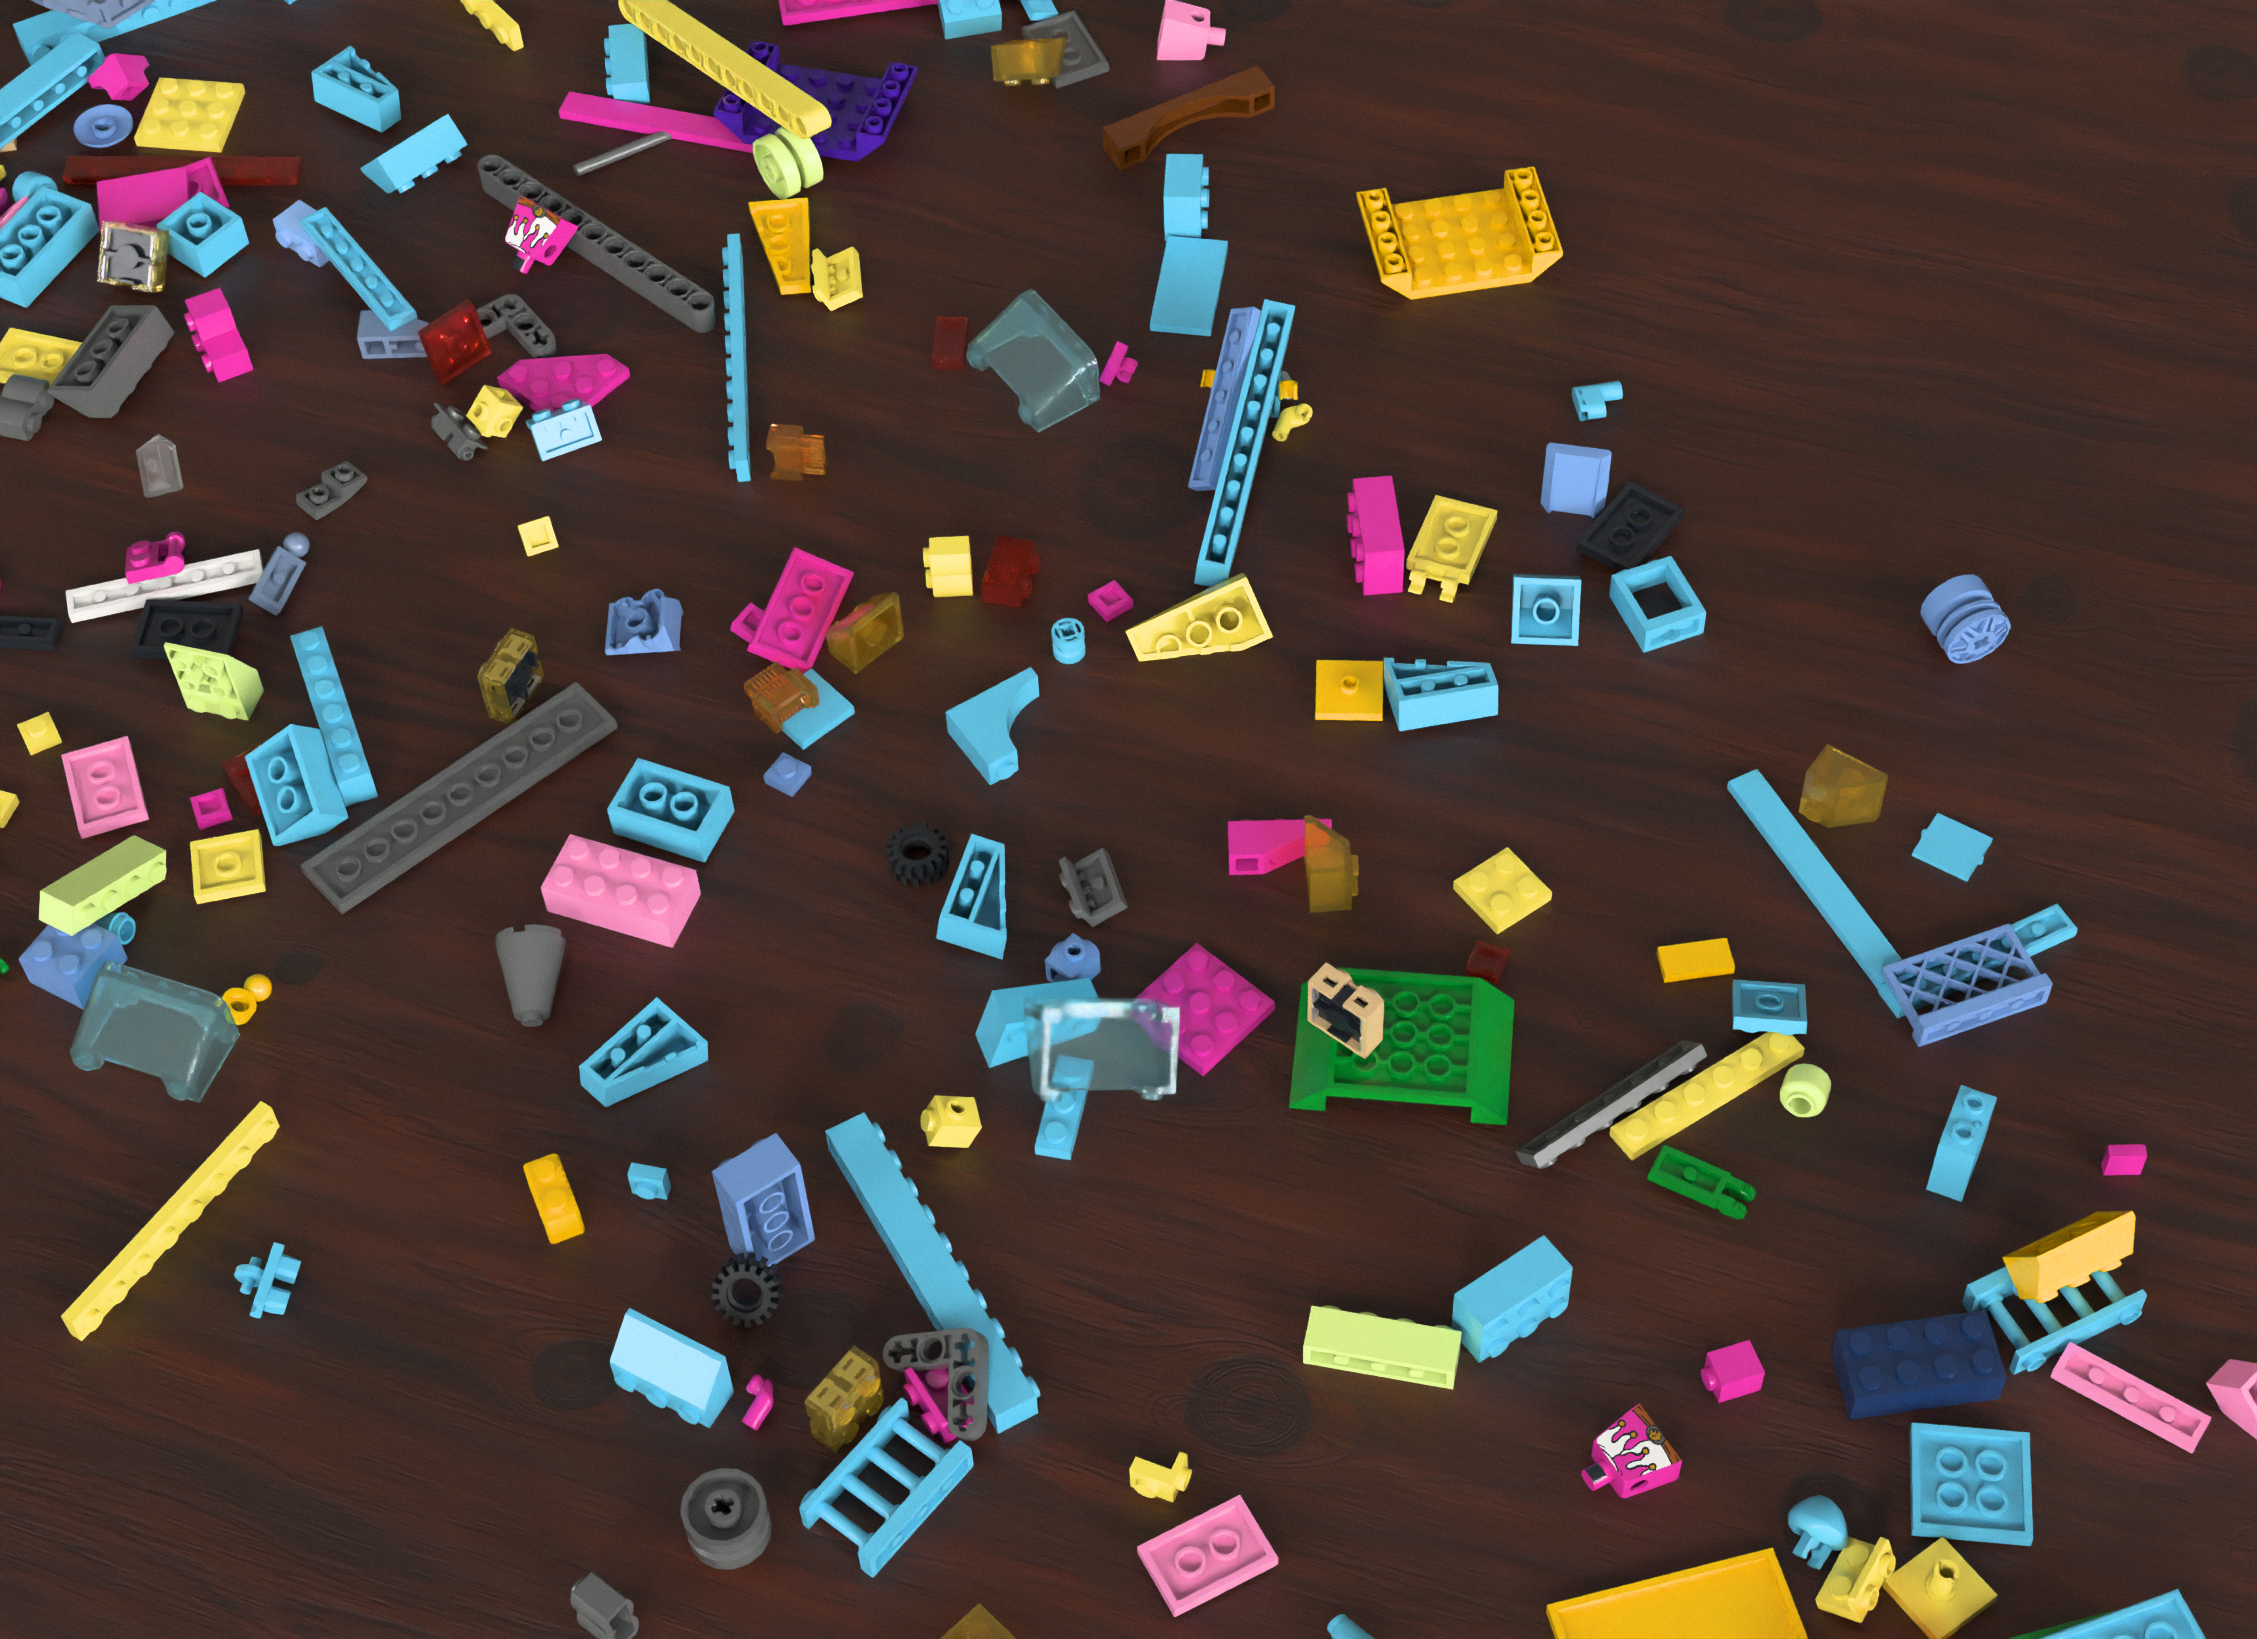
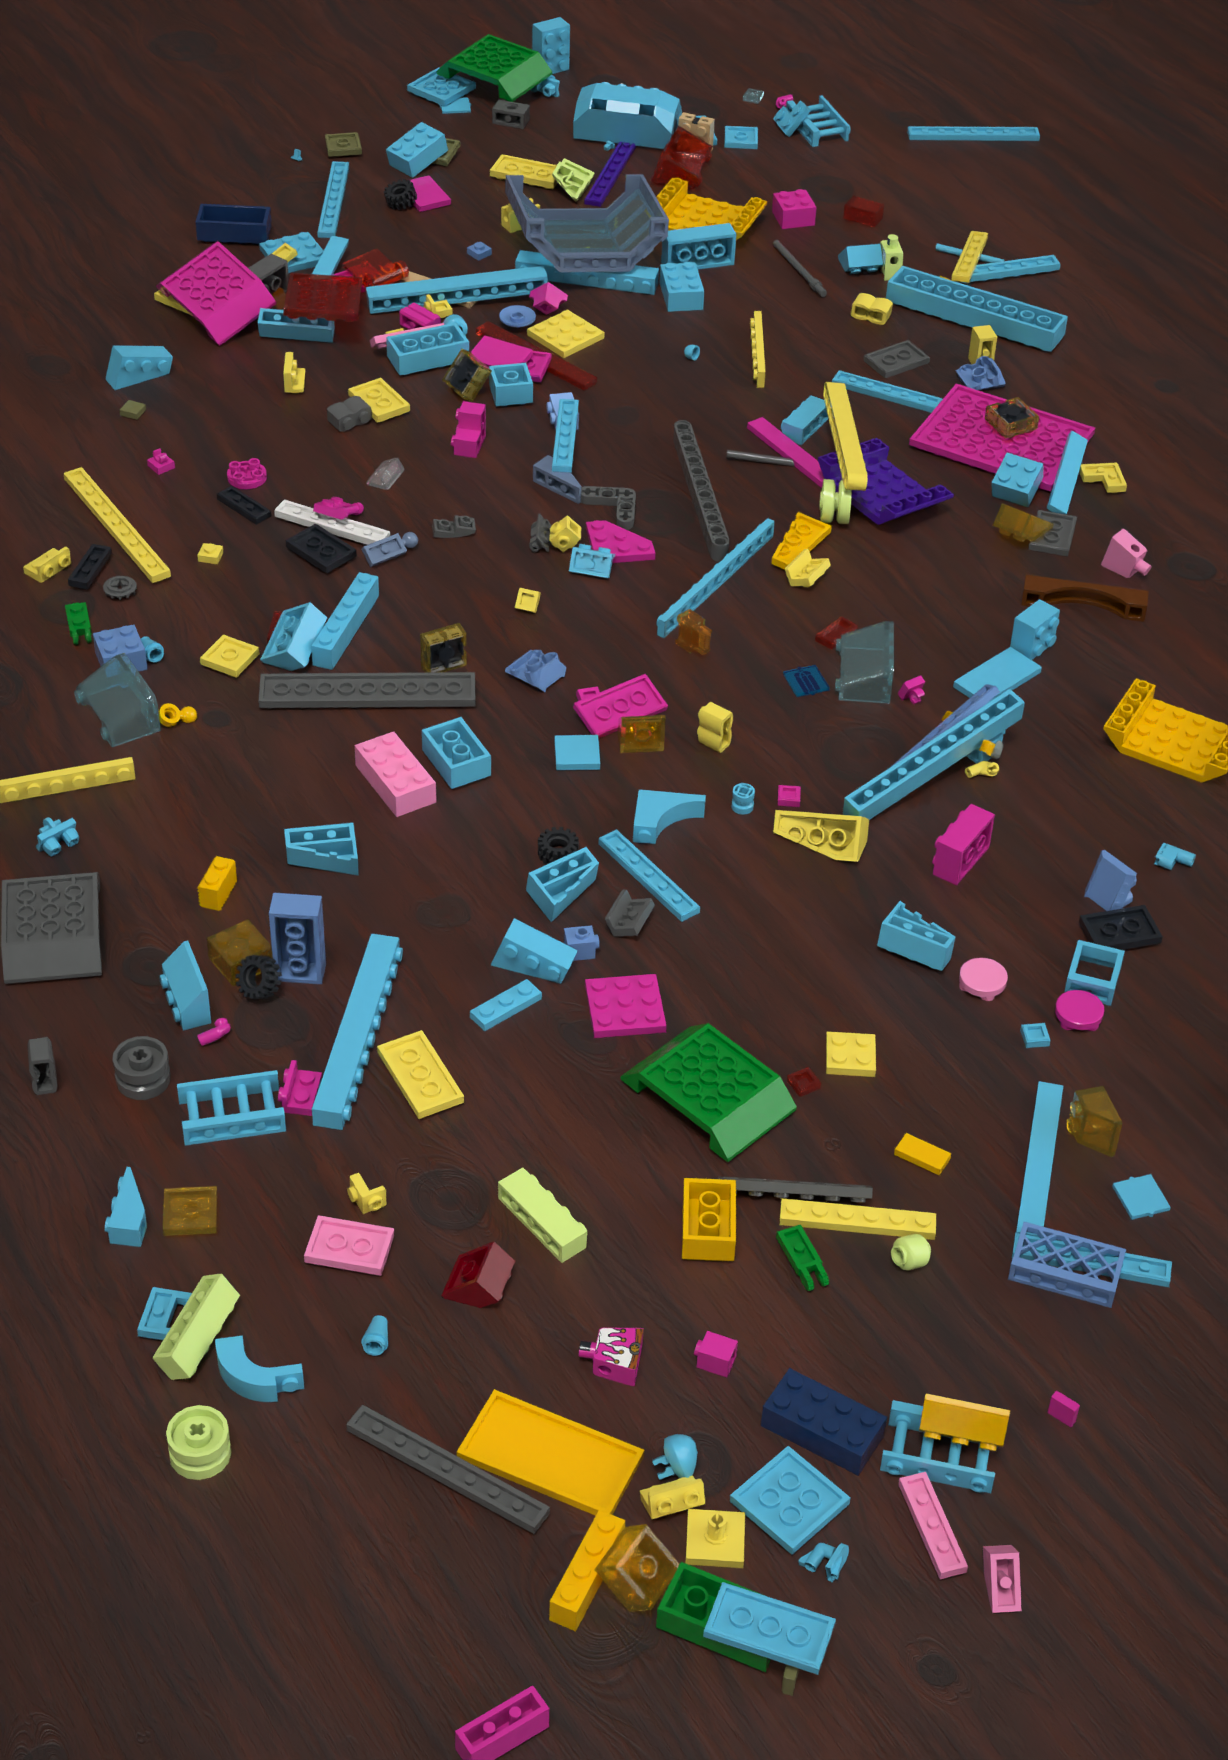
camera: 35 degrees right, 10 degrees down
(102, 885) = (160, 624): yellowish green brick -> none
(104, 787) = (212, 591): bright pink plate -> none
(112, 360) = (411, 415): dark grey slope -> none
(211, 808) = (250, 629): dark pink tile -> none
(215, 682) = (304, 572): yellowish green slope -> none
(356, 91) = (653, 360): medium azure wedge -> none
(385, 47) = (692, 352): none -> medium azure hinge
(402, 1409) = (50, 928): none -> dark grey slope
(416, 156) = (652, 404): medium azure slope -> none
(454, 342) = (578, 492): clear red plate -> none
(531, 969) = (314, 779): dark grey cone -> none
(537, 234) = (671, 467): torso -> none
(649, 1181) = (265, 899): medium azure plate -> none
(680, 1271) = (235, 944): none -> clear yellow brick
(780, 694) = (565, 734): clear orange piece -> none
(787, 774) = (535, 775): medium blue plate -> none
(845, 1399) = (249, 1051): clear yellow piece -> none
(951, 1121) = (438, 970): light yellow brick -> none
(952, 1358) = (320, 1072): dark grey beam -> none
(977, 431) = (806, 680): none -> clear blue piece
(1010, 571) = (747, 750): clear red brick -> none
(1055, 817) = (649, 875): none -> medium azure tile
(1062, 1272) = (420, 1074): none -> light yellow plate
(1101, 1045) = (542, 979): clear light blue windscreen -> none
(1265, 844) = (745, 953): dark pink slope -> none
(1328, 868) = (756, 979): clear yellow slope -> none
(1345, 1010) = (681, 1036): tan piece -> none
(1349, 690) = (868, 910): yellow plate -> none
(1391, 1480) = (479, 1276): none -> dark red slope
(1449, 545) = (1005, 877): light yellow tile -> none
(1512, 1299) = (630, 1234): medium azure brick -> none
(1545, 609) = (1025, 936): medium azure slope -> none
(1549, 692) = (983, 978): none -> bright pink tile
(1572, 1211) = (709, 1219): none -> yellow brick
(1666, 726) = (1035, 1035): none -> medium azure tile
(1684, 662) = (1079, 1010): none -> dark pink tile
(1769, 1007) = (934, 1198): medium azure plate -> none
(1961, 1143) = (979, 1339): medium azure window -> none
(2055, 1533) = (837, 1559): none -> medium azure piece

